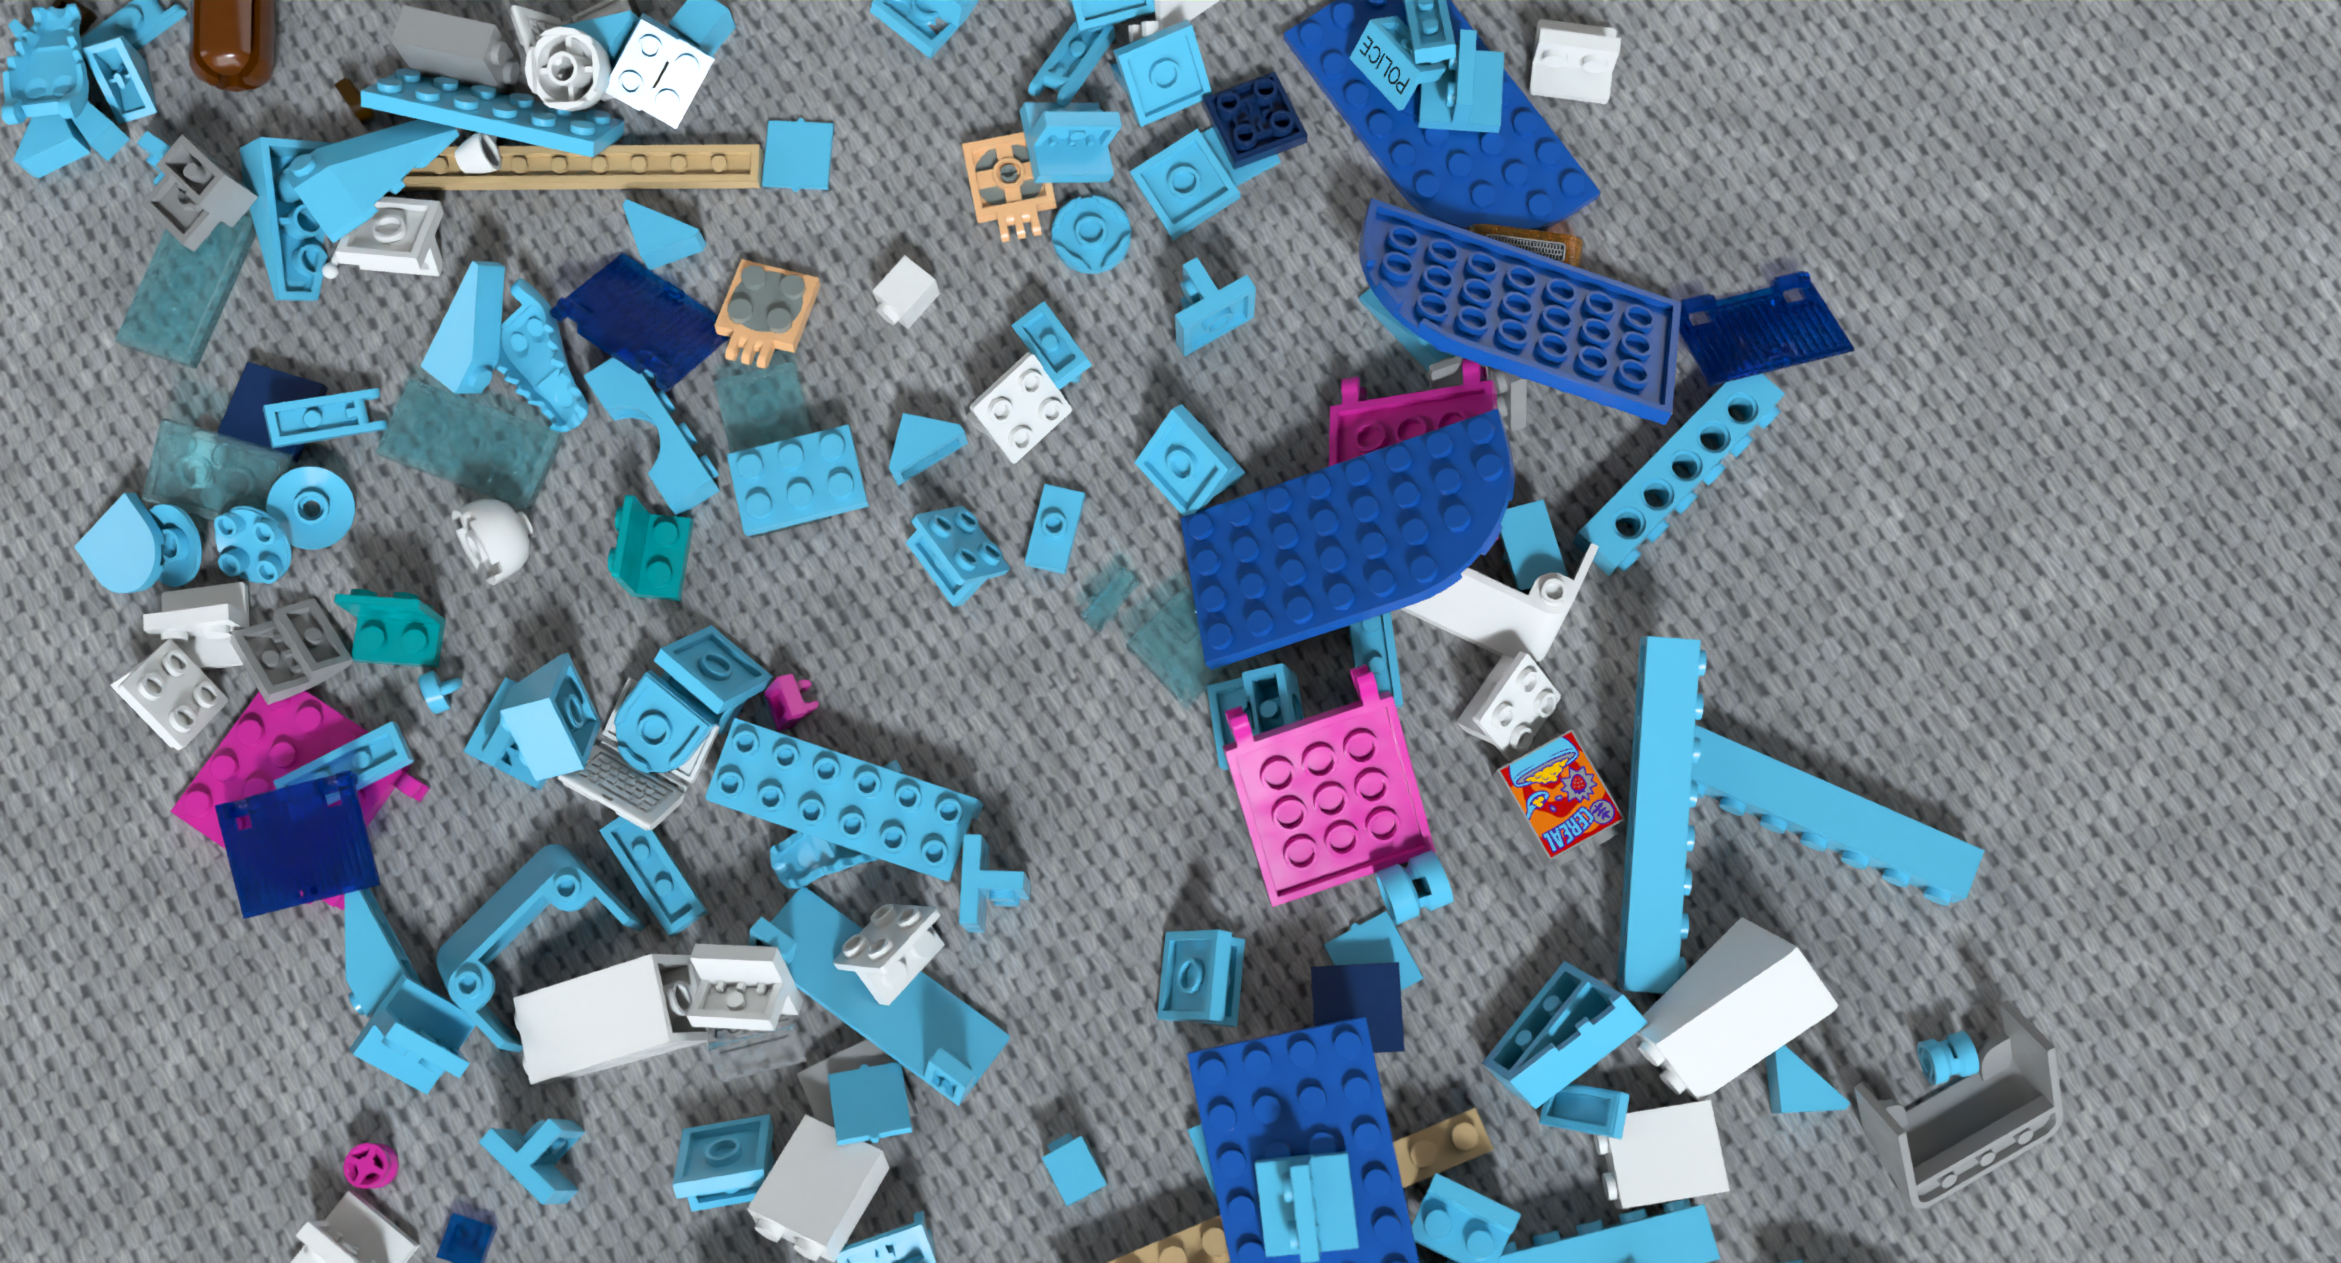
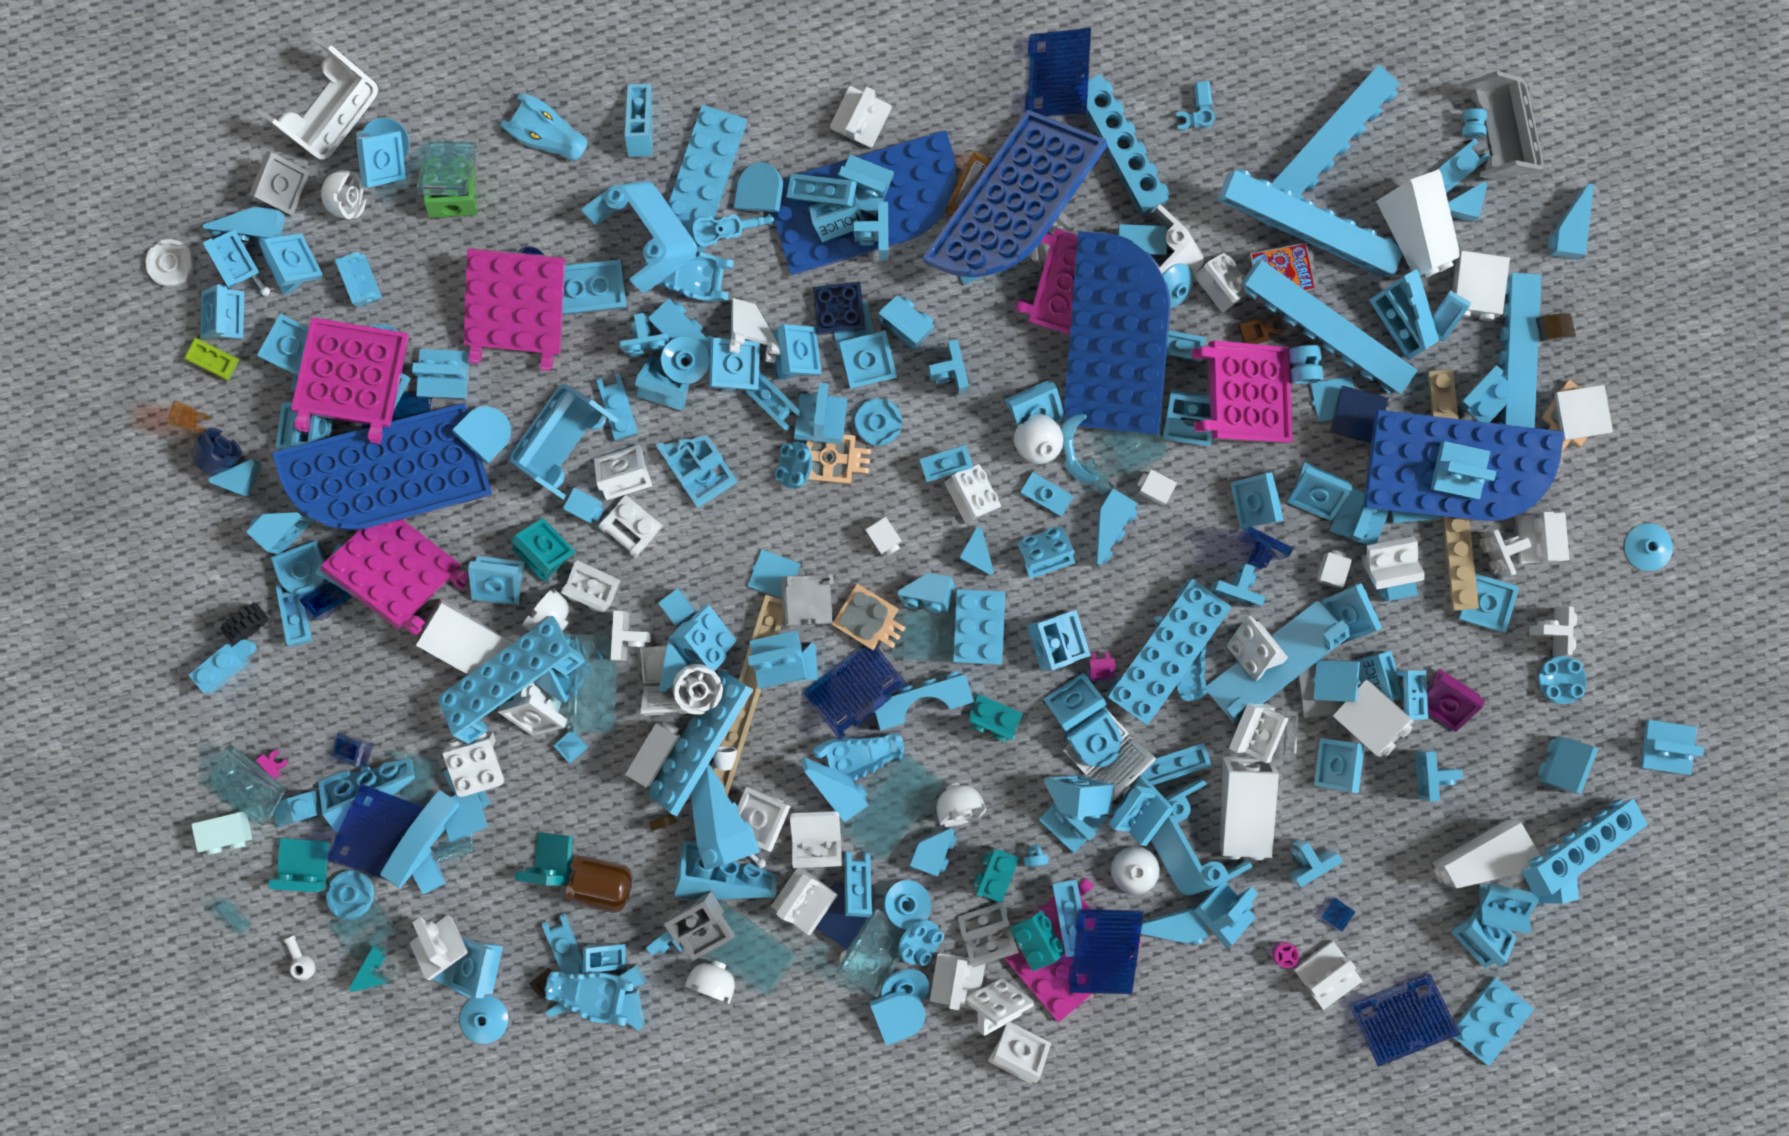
camera: 75 degrees left, 10 degrees up
(100, 760) = (1020, 1053): none -> white bracket
(113, 244) = (712, 981): none -> white cylinder
(277, 344) = (803, 901): none -> white bracket
(293, 729) = (1037, 941): none -> teal bracket
(380, 338) = (816, 839): none -> white bracket
(405, 520) = (932, 851): none -> medium azure slope
(458, 862) = (1135, 870): none -> white cylinder
(551, 829) = (1141, 811): none -> medium azure bracket
(653, 183) = (777, 659): none -> medium azure bracket
(767, 207) = (806, 600): none -> light grey piece
(802, 601) = (1058, 641): none -> medium azure brick
(834, 387) = (929, 592): none -> medium azure slope
(910, 1186) = (1381, 673): none -> medium azure panel
(980, 124) = (794, 465): none -> medium azure dish
(1006, 1104) = (1354, 609): none -> medium azure bracket
(1040, 642) = (1111, 519): none -> medium azure slope
(1050, 904) = (1264, 548): none -> clear blue bracket
(1071, 1045) = (1334, 569): none -> white brick
(1108, 1142) = (1393, 563): none -> white bracket
(1120, 699) = (1156, 487): none -> white brick
(1126, 548) = (1071, 463): none -> medium azure piece
(1139, 480) = (1038, 439): none -> white cylinder
(1151, 878) = (1256, 501): none -> medium azure bracket
(1162, 1064) = (1358, 522): none -> medium azure bracket
(1264, 218) = (906, 322): none -> medium azure slope
(1390, 122) = (874, 231): none -> medium azure bracket
(1442, 788) = (1257, 332): none -> reddish brown plate
(1471, 608) = (1179, 282): none -> medium azure dish
(1489, 901) = (1329, 327): none -> medium azure brick
(1778, 590) = (1205, 116): none -> medium azure bar
(1857, 1055) = (1461, 165): none -> medium azure hinge

